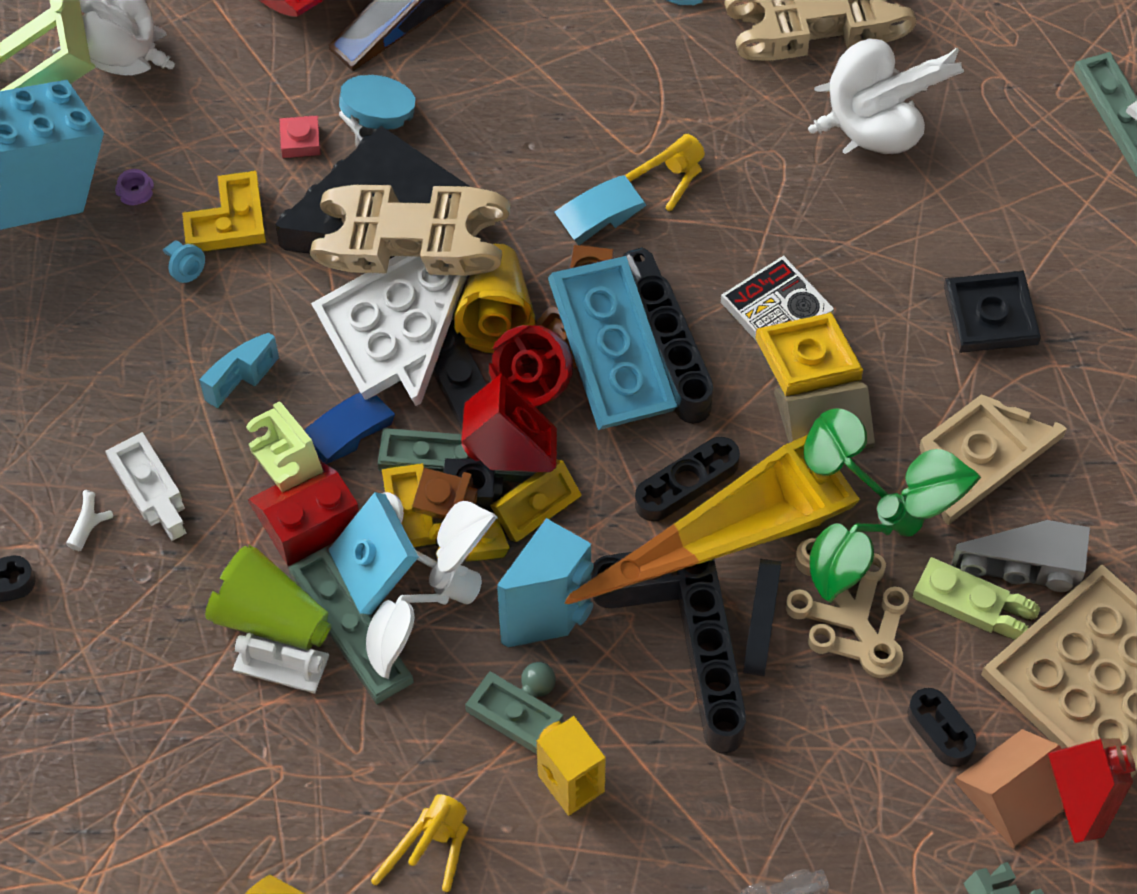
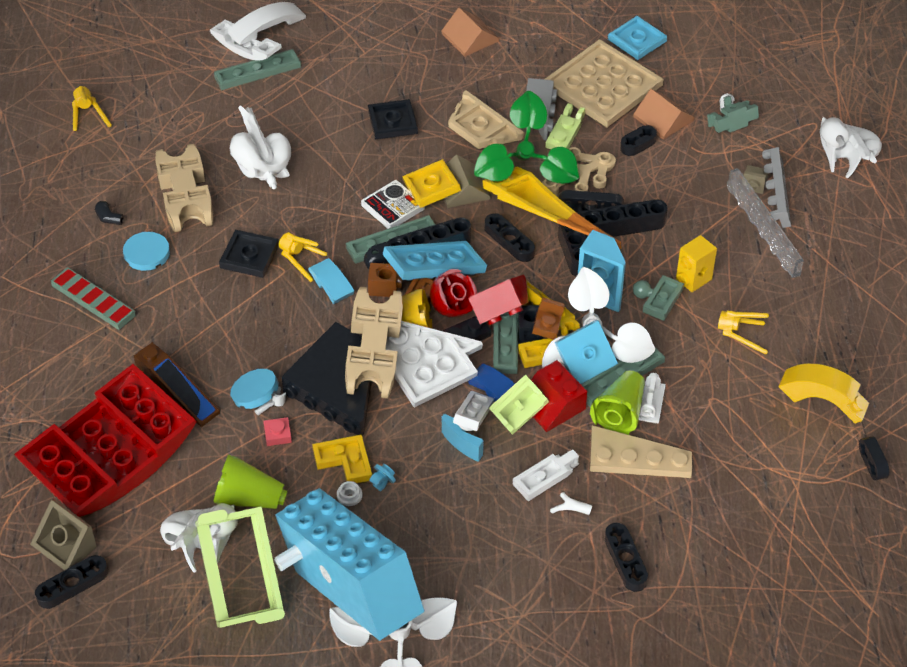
camera: 95 degrees left, 10 degrees down
(161, 213) = (349, 488): none -> white plate
(167, 630) = (633, 455): none -> tan wing
(185, 85) = (248, 486): none -> lime cone
(272, 375) = (473, 411): none -> white plate
(666, 98) = (249, 253): none -> black plate
(697, 302) = (359, 247): none -> sand green tile
(1092, 784) = (671, 74): red slope -> none

